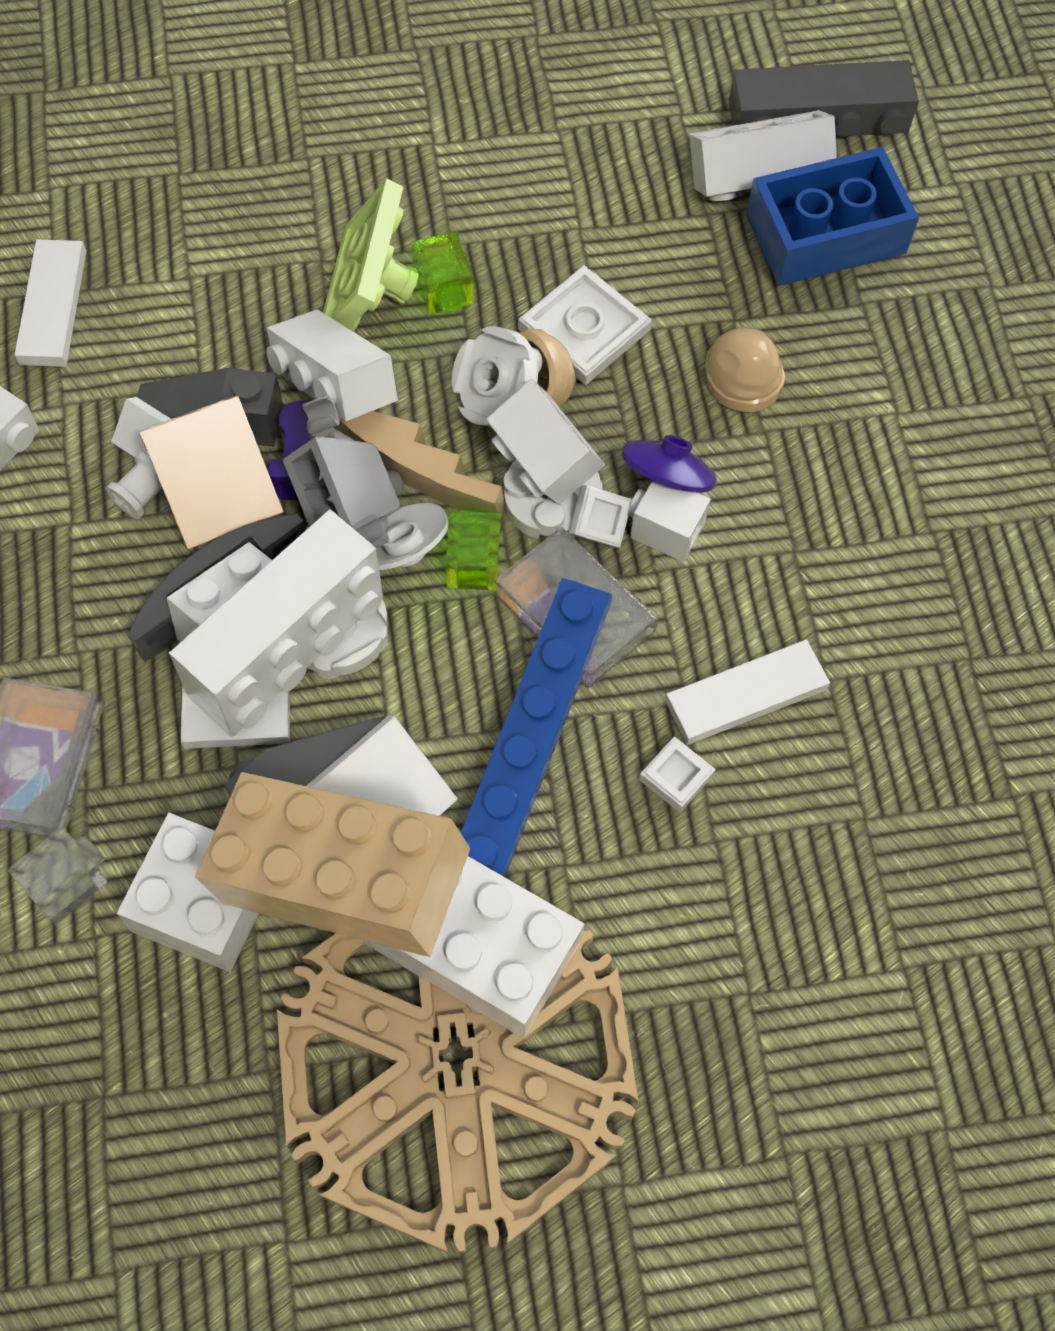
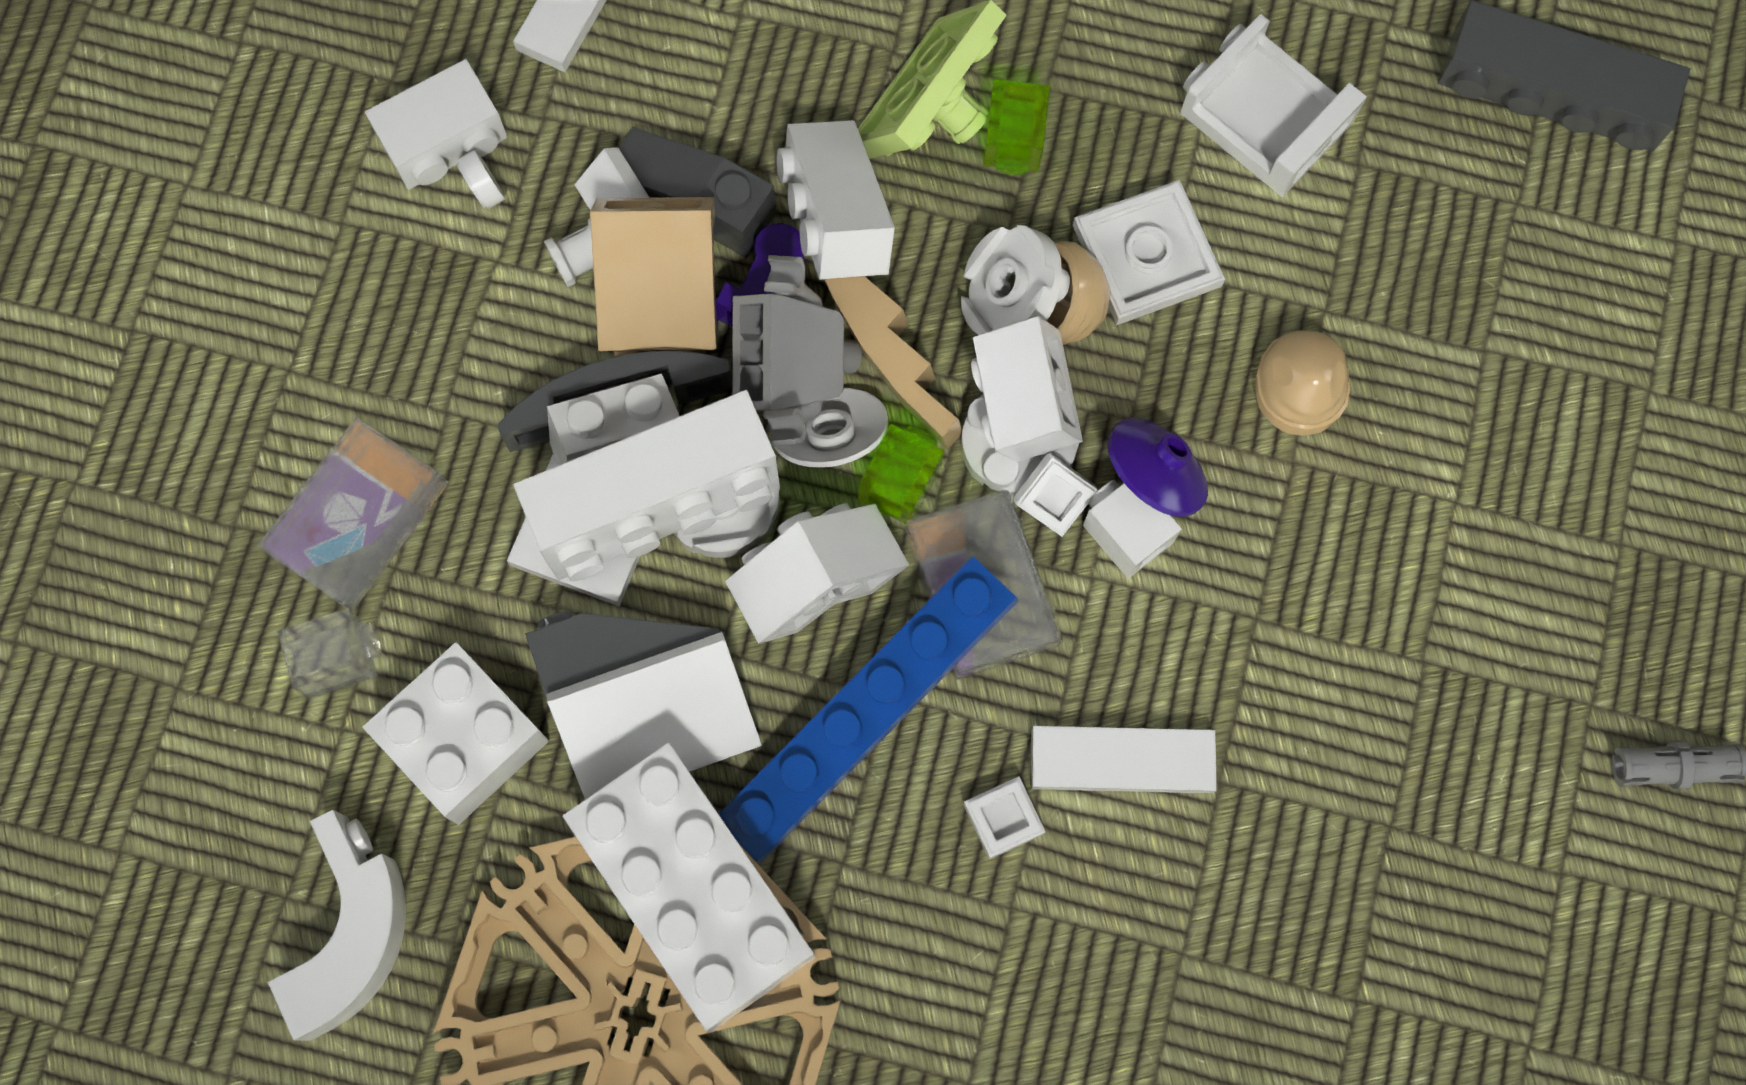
camera: 25 degrees right, 10 degrees up
(32, 463) = (480, 179): none -> white tile
(192, 1109) = (365, 941): none -> white arch
(335, 862) = (584, 785): tan brick -> none
(436, 641) = (813, 568): none -> white brick
(622, 197) = (1267, 107): none -> white panel
(735, 155) = (1455, 122): white brick -> none
(831, 215) = (1495, 233): blue brick -> none

